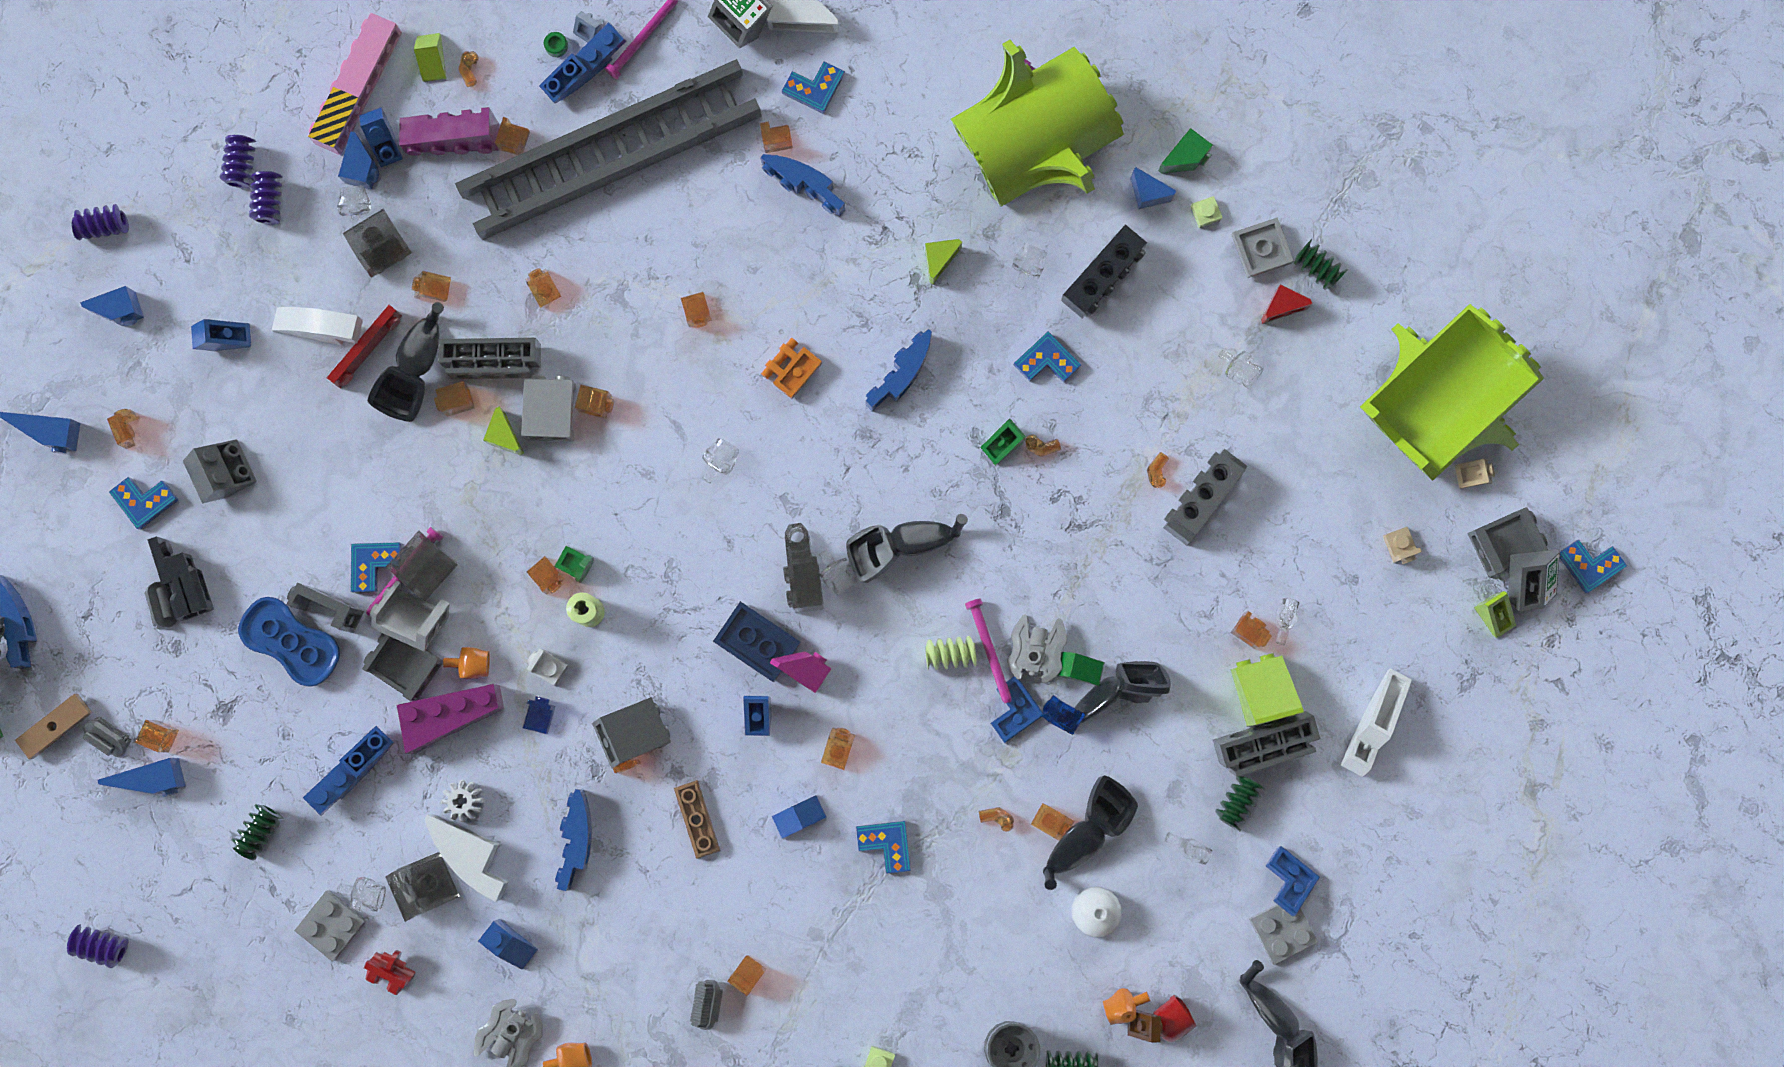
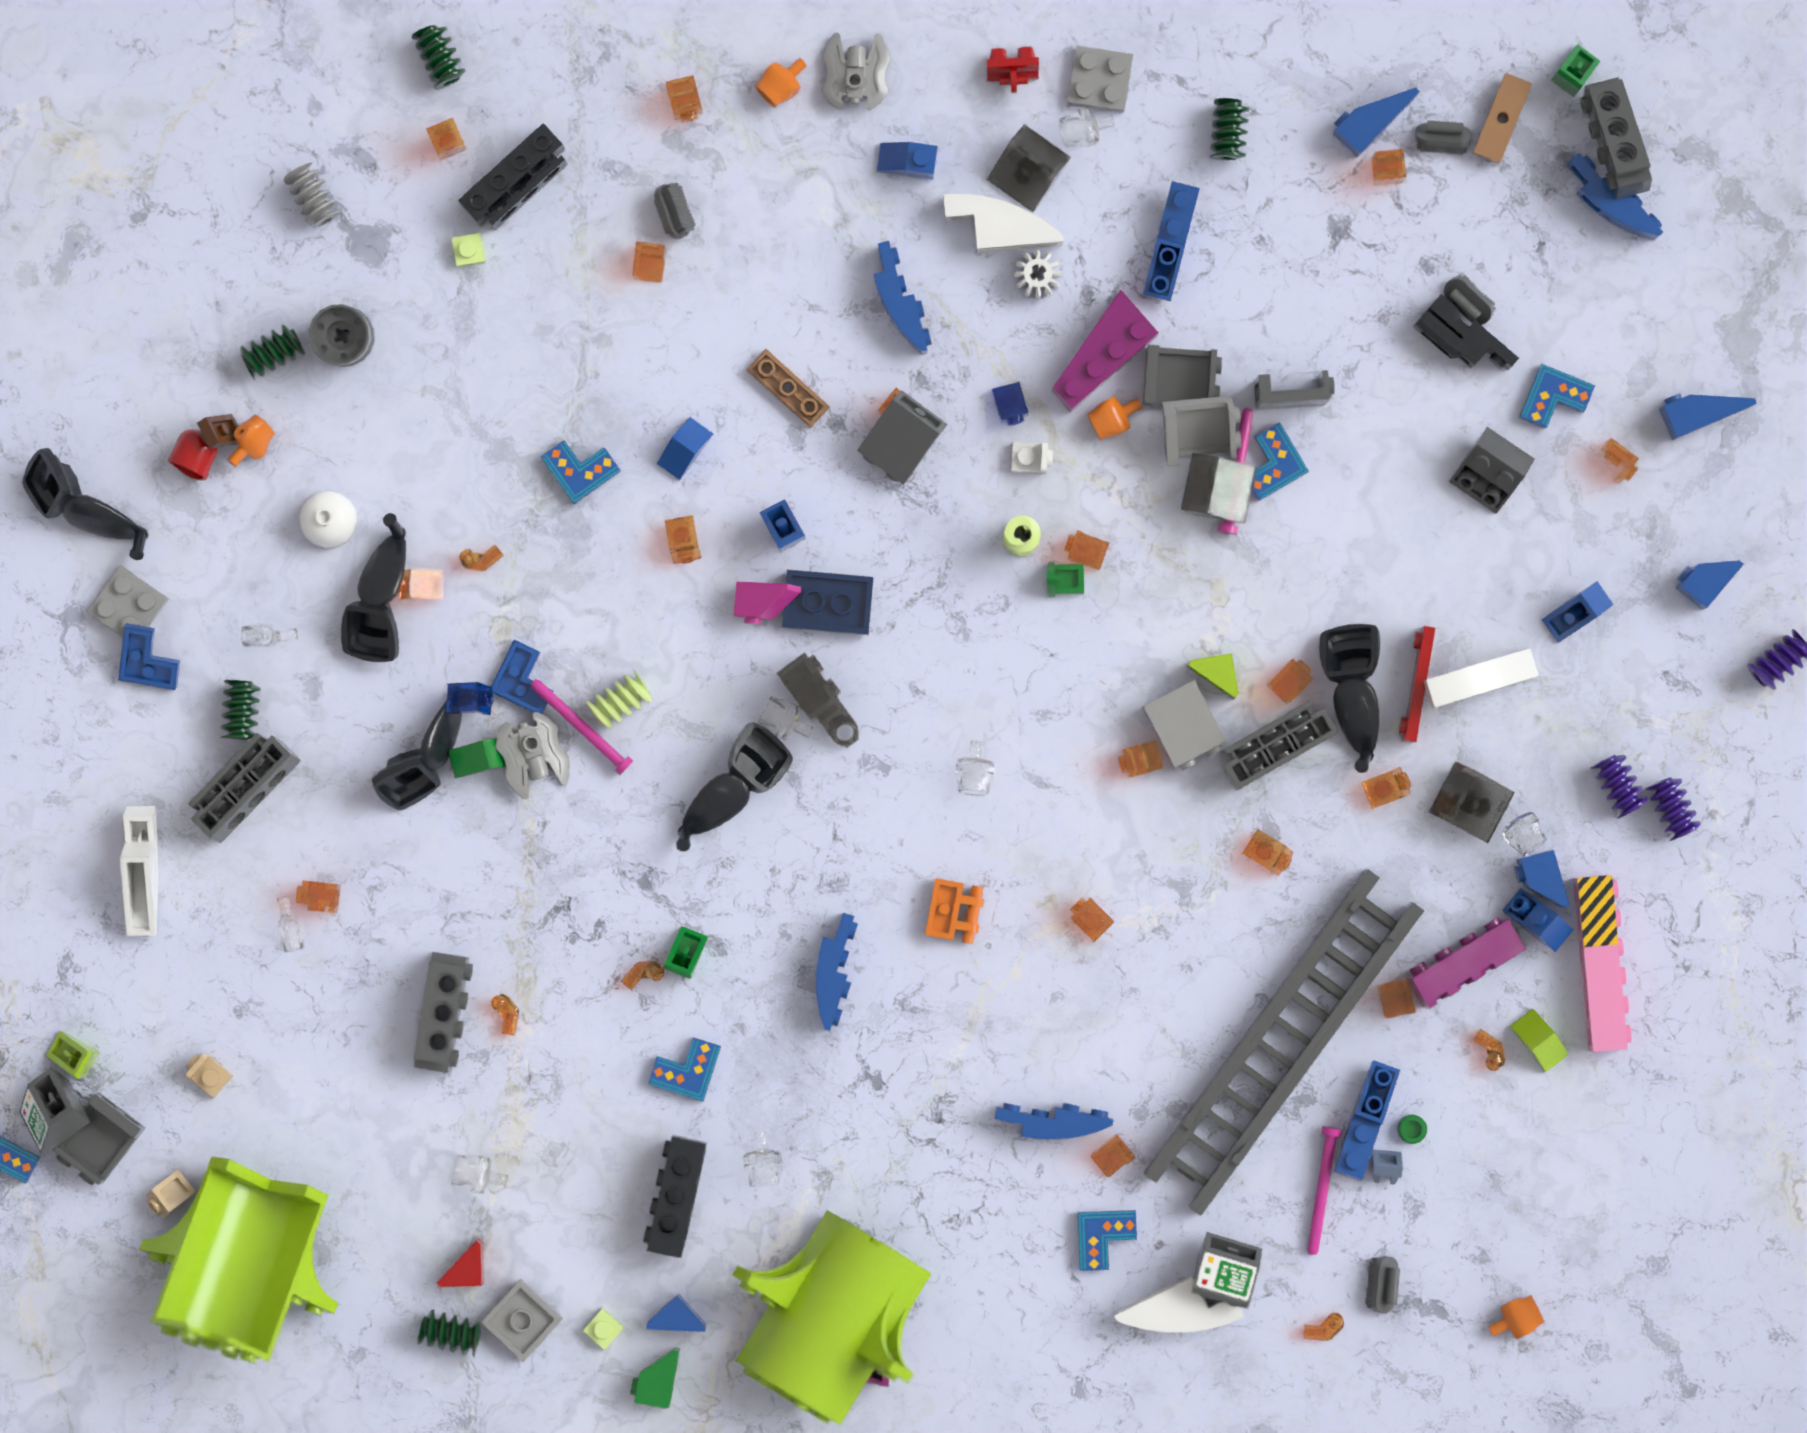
camera: 150 degrees right, 5 degrees up
(303, 651) = (1290, 334): blue plate -> none
(939, 256) = (863, 1118): lime slope -> none
(1265, 690) = (272, 840): lime slope -> none

